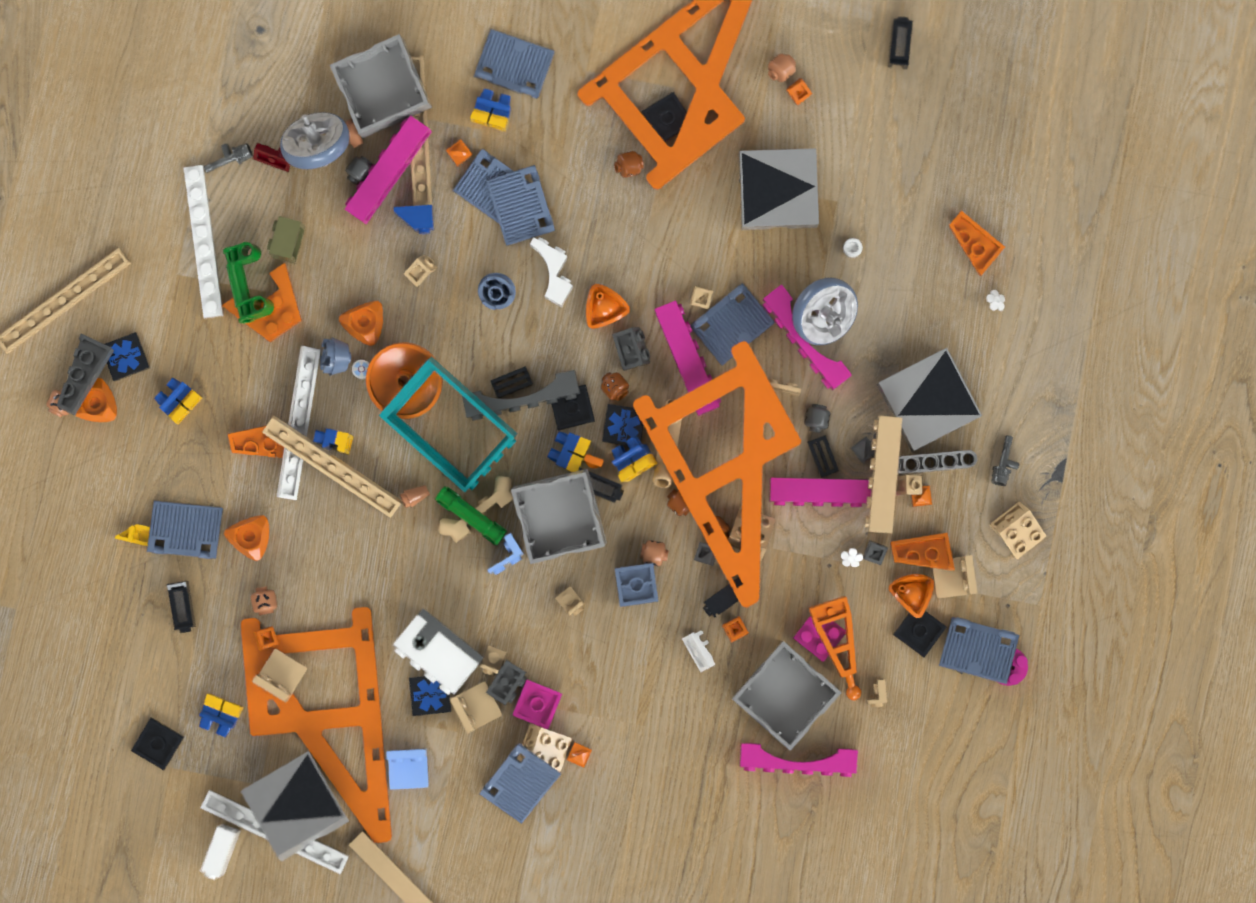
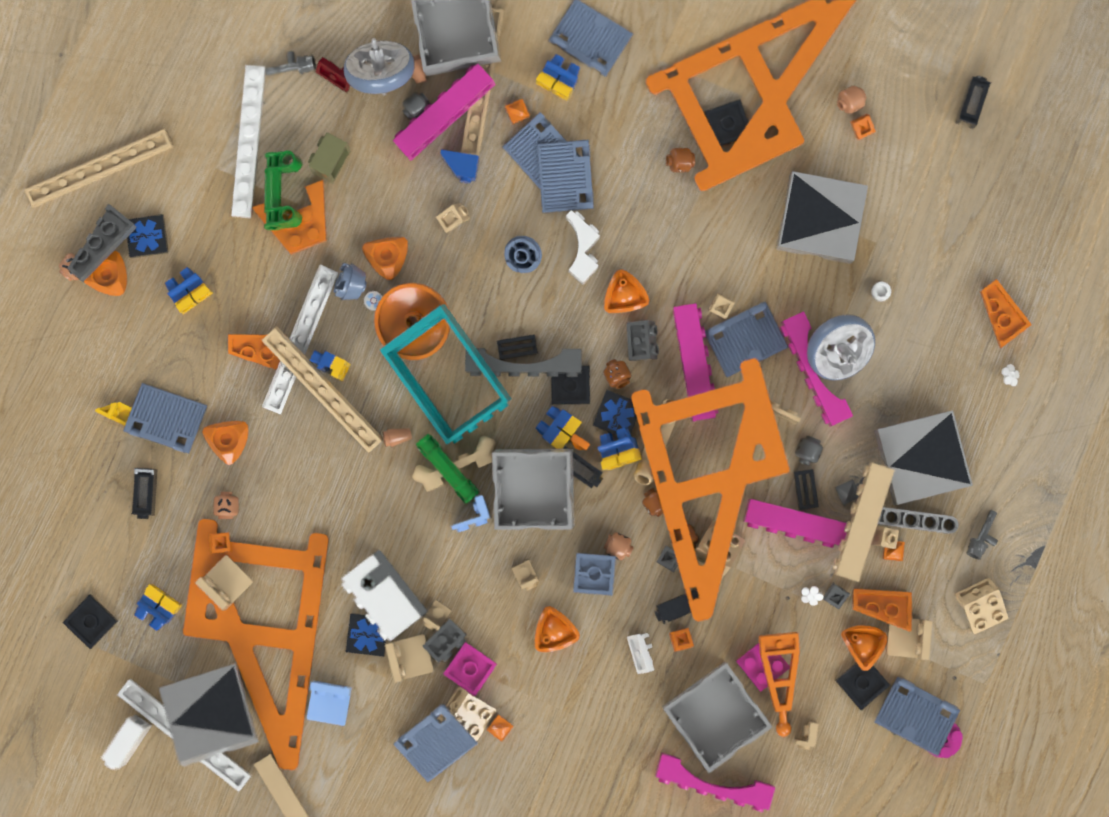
camera: 15 degrees right, 0 degrees up
(610, 649) = (554, 631): none -> orange hat

